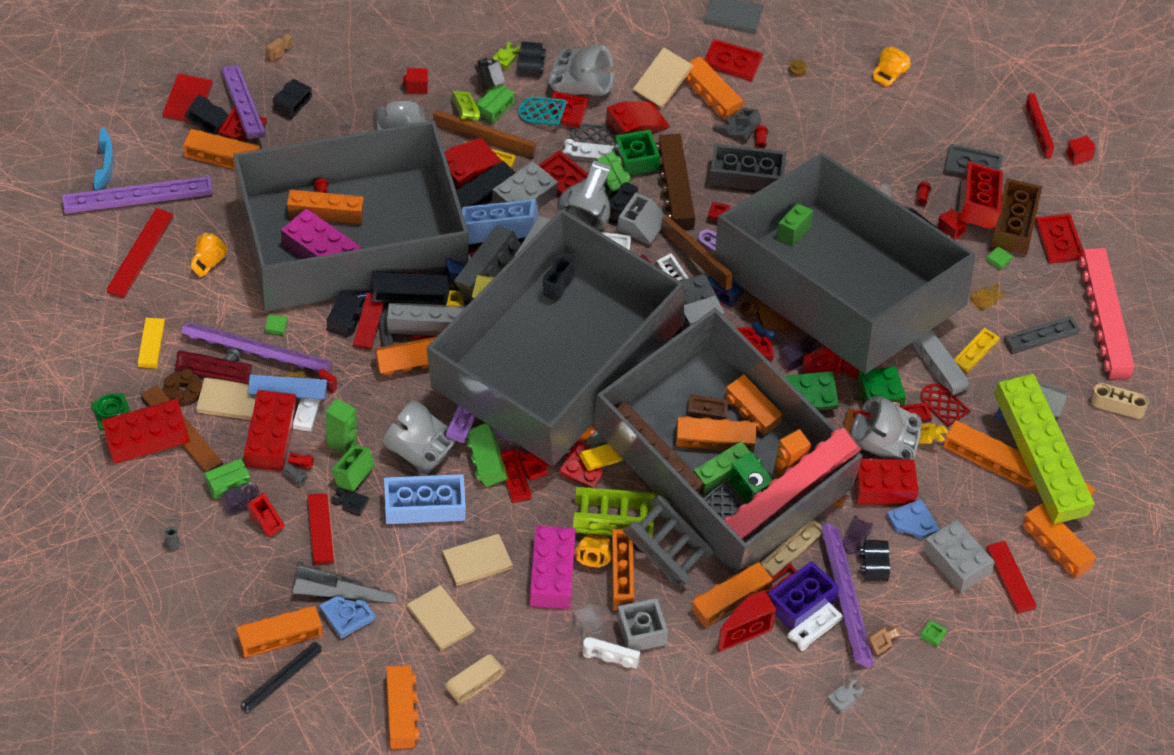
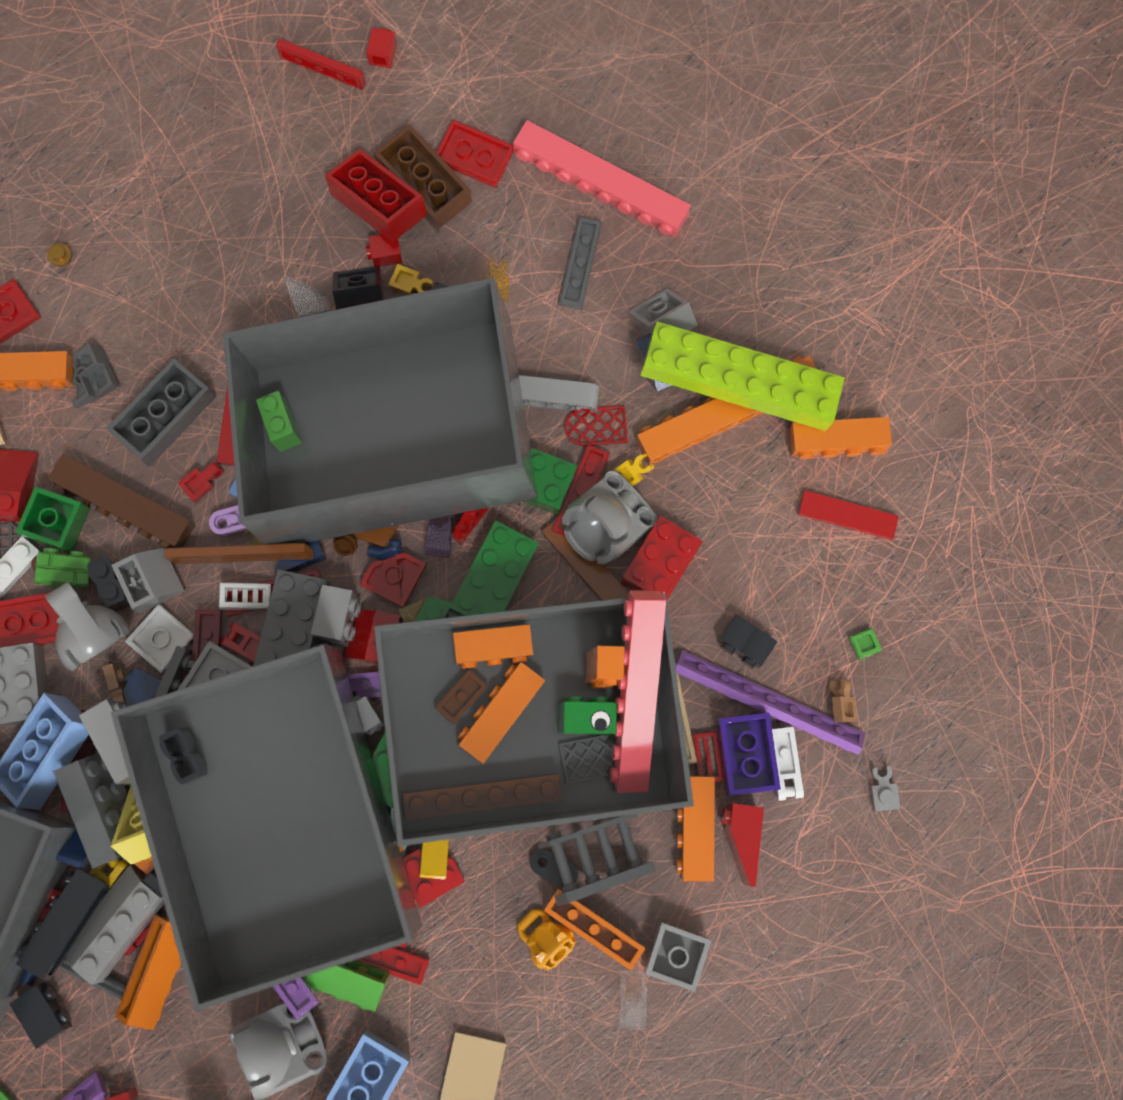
camera: 55 degrees left, 25 degrees up
(368, 323) = (74, 997): red tile -> none
(552, 567) = (539, 1003): dark pink brick -> none
(604, 523) = (525, 911): lime fence -> none
(610, 652) = (685, 1012): white plate -> none
(718, 469) = (547, 734): bright green brick -> none
(761, 133) = (120, 360): red pin -> none
(856, 534) = (702, 635): clear purple piece -> none
(891, 63) = (130, 153): light orange piece -> none
(913, 519) = (720, 564): medium blue plate -> none
(923, 191) = (317, 244): red pin -> none
(958, 556) = (797, 553): light grey brick -> none
(959, 156) = (308, 170): dark grey tile -> none
(976, 350) = (555, 345): yellow tile -> none
(999, 258) = (457, 233): bright green tile -> none
(1119, 400) = (702, 250): tan beam -> none

